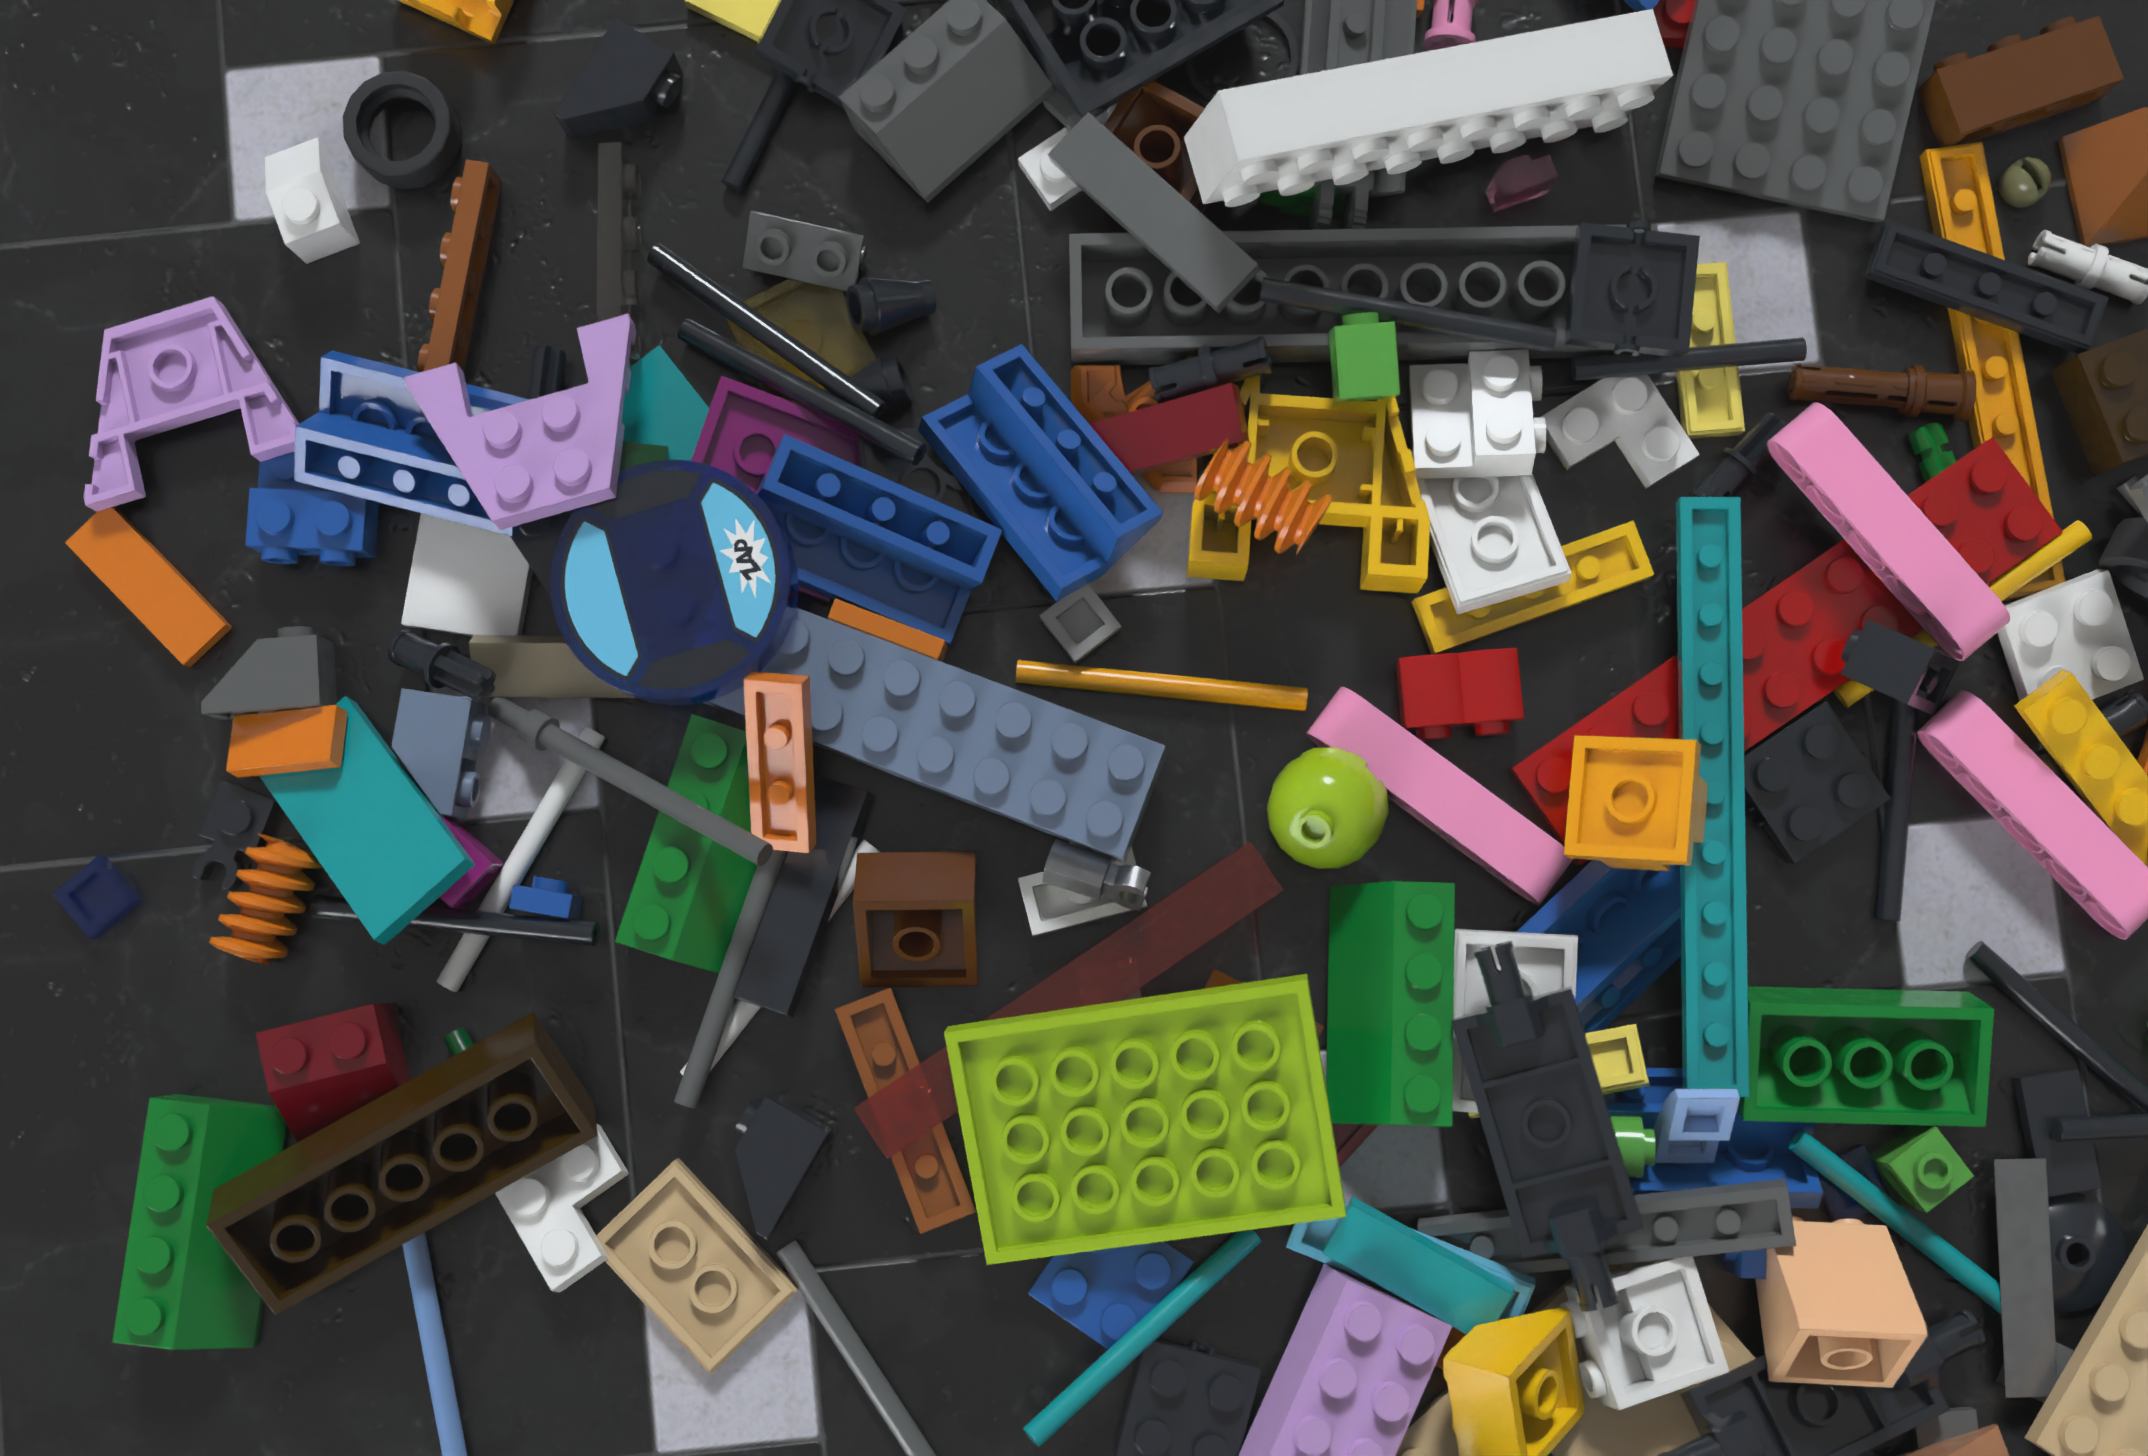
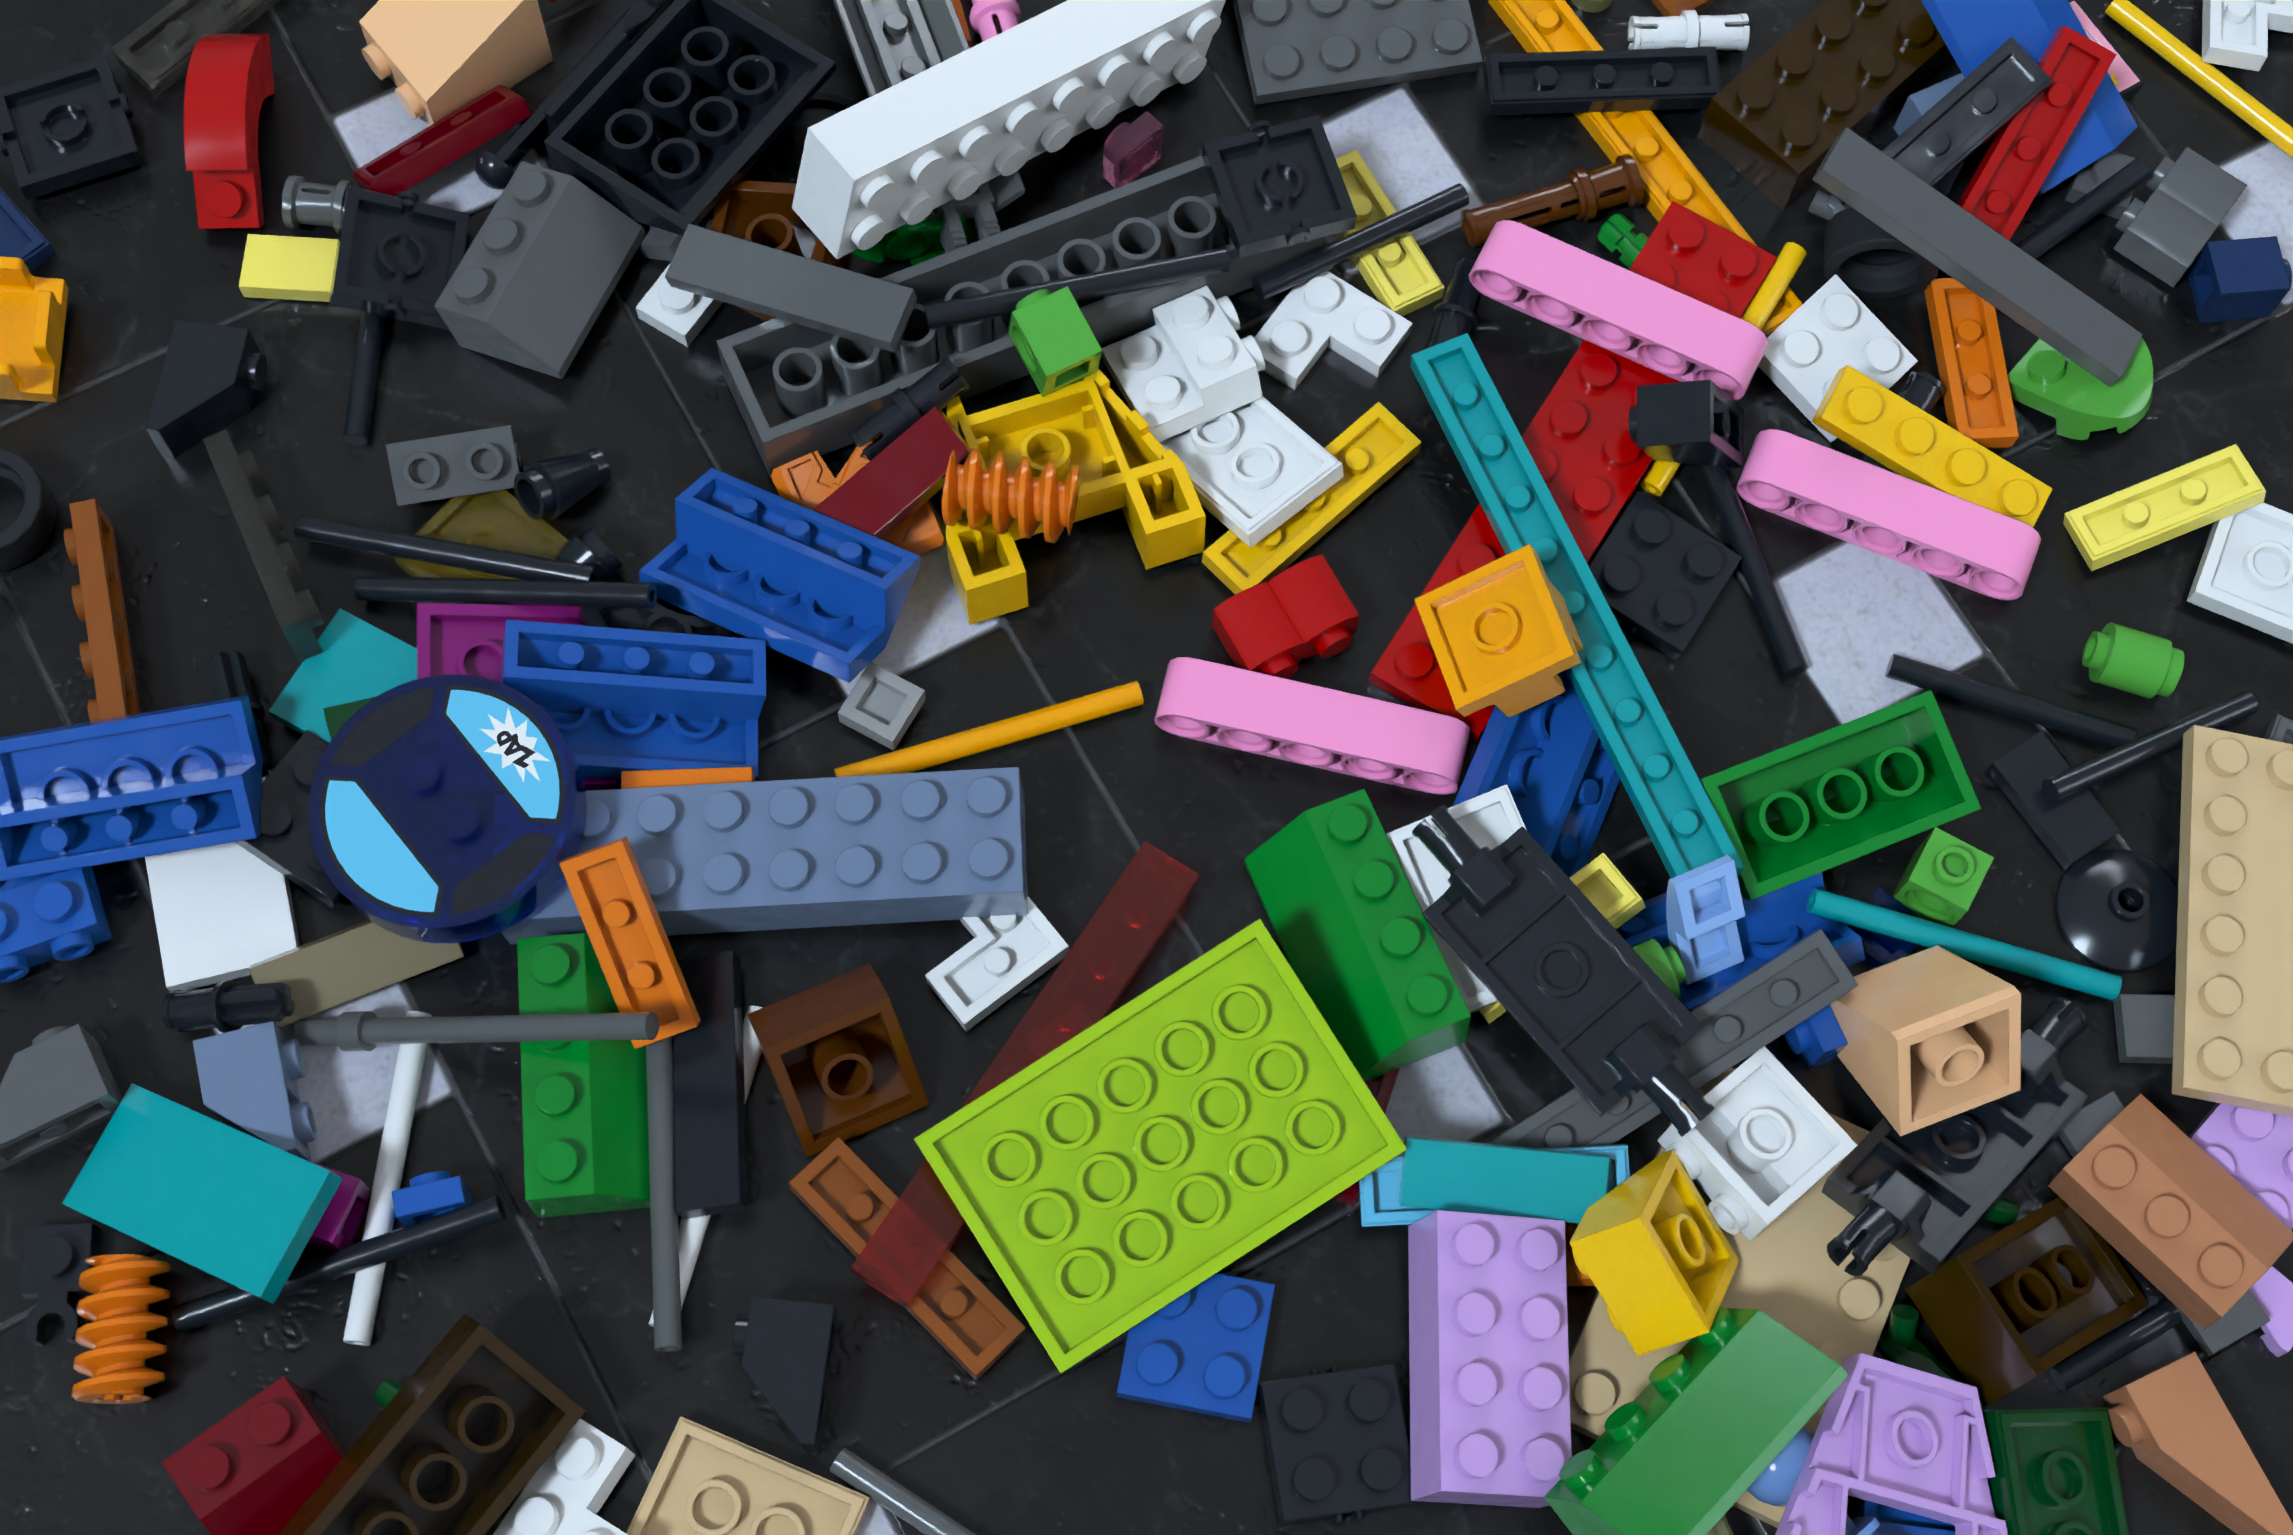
camera: 30 degrees left, 15 degrees down
(287, 741) = (84, 1152): orange tile -> none
(544, 450) = (256, 731): lavender wing -> none
(1095, 875) = (1004, 932): flat silver bar -> none
(1140, 1336) = (1253, 1379): teal piece -> none
(1327, 808) = (1207, 776): lime cylinder -> none
(2025, 1277) = (2094, 945): flat silver sticker -> none

